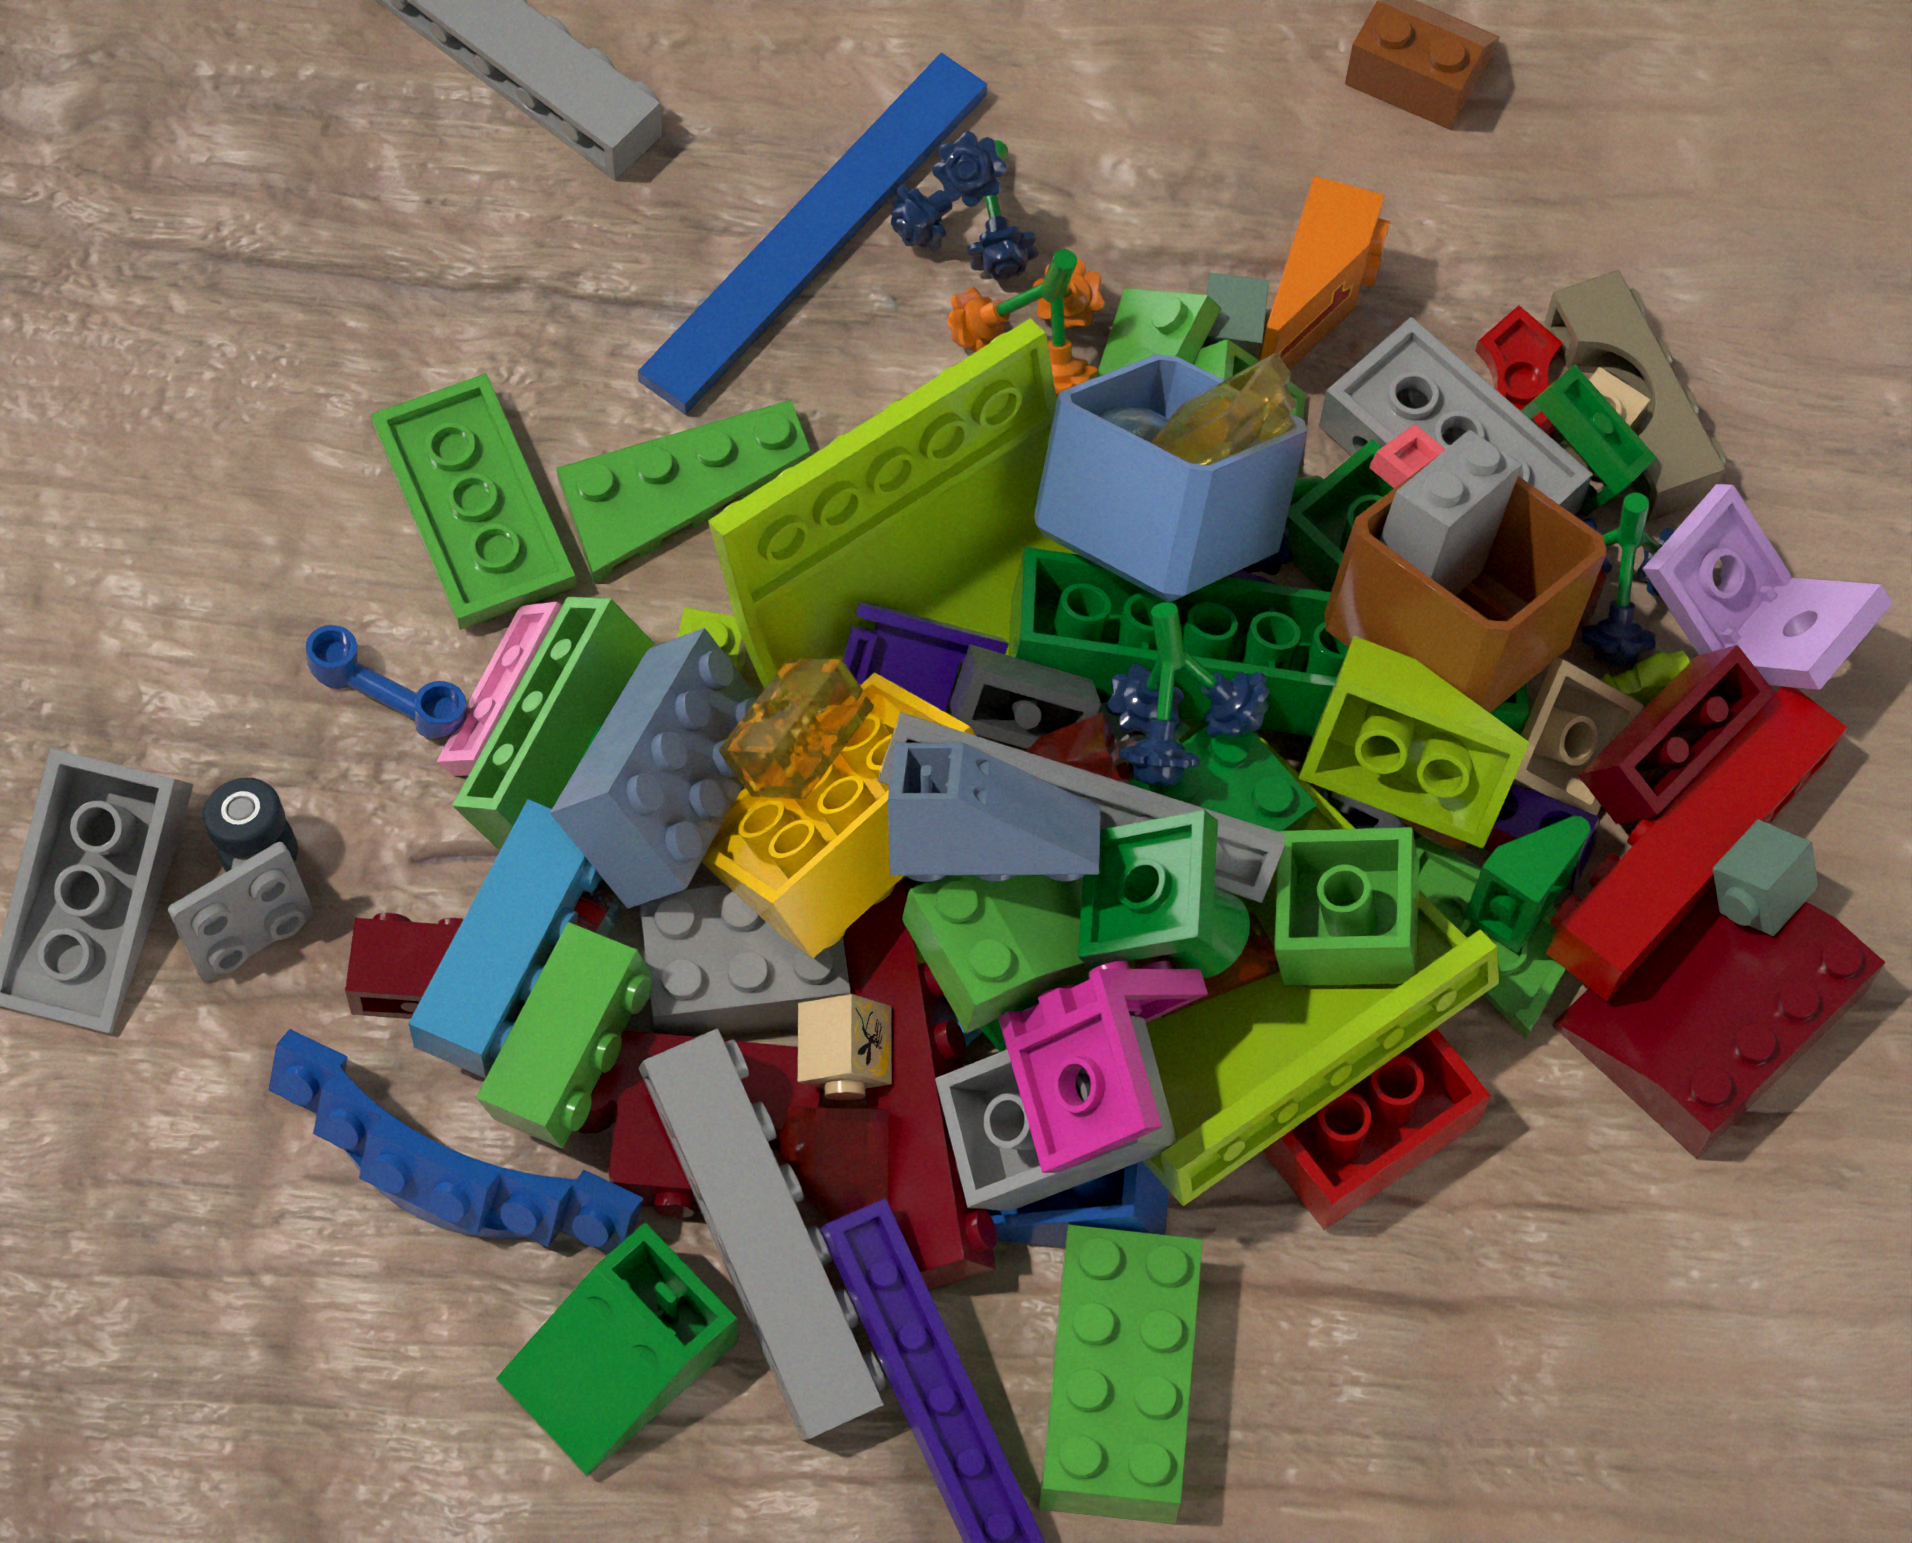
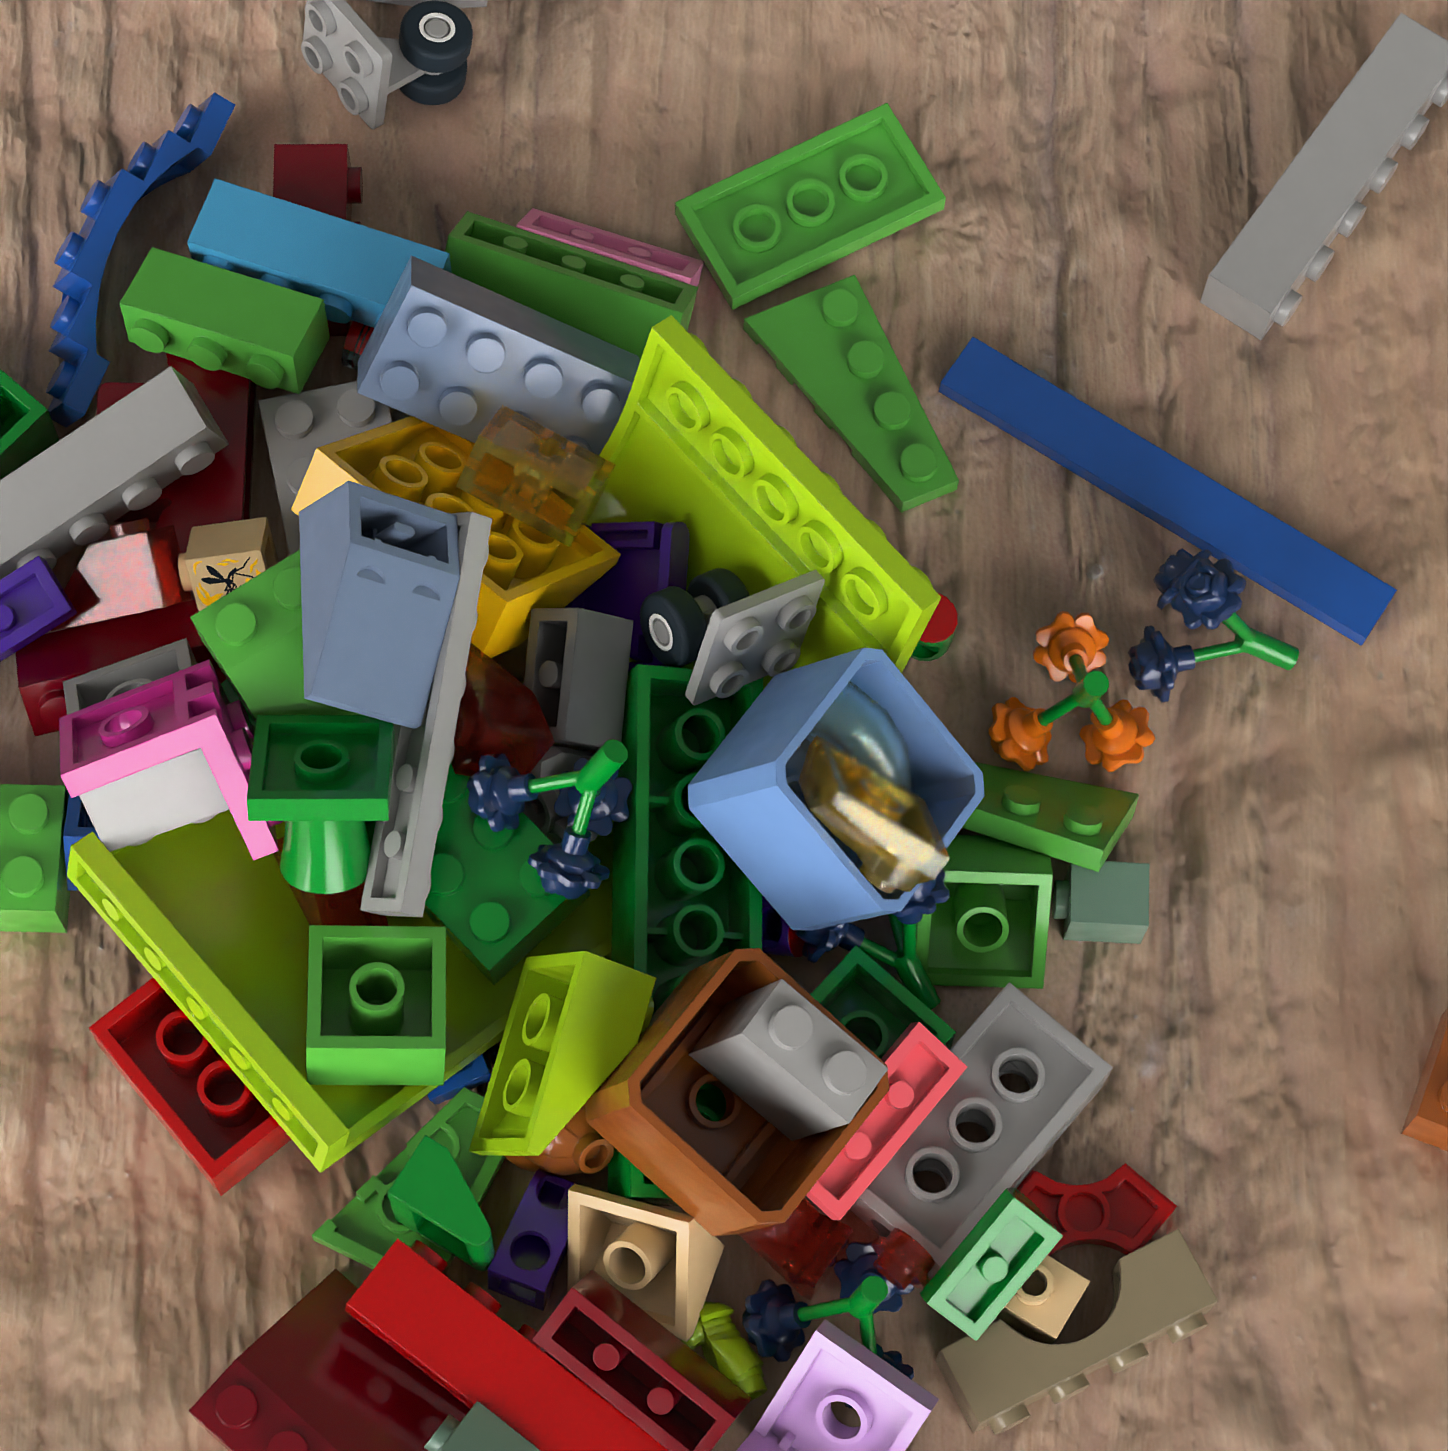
camera: 85 degrees right, 5 degrees up
(332, 660) = (627, 113): blue bar -> none
(970, 582) = (729, 631): none -> light grey plate
(1329, 261) = (1162, 976): orange slope -> none
(1588, 500) = (902, 1260): none -> clear red plate

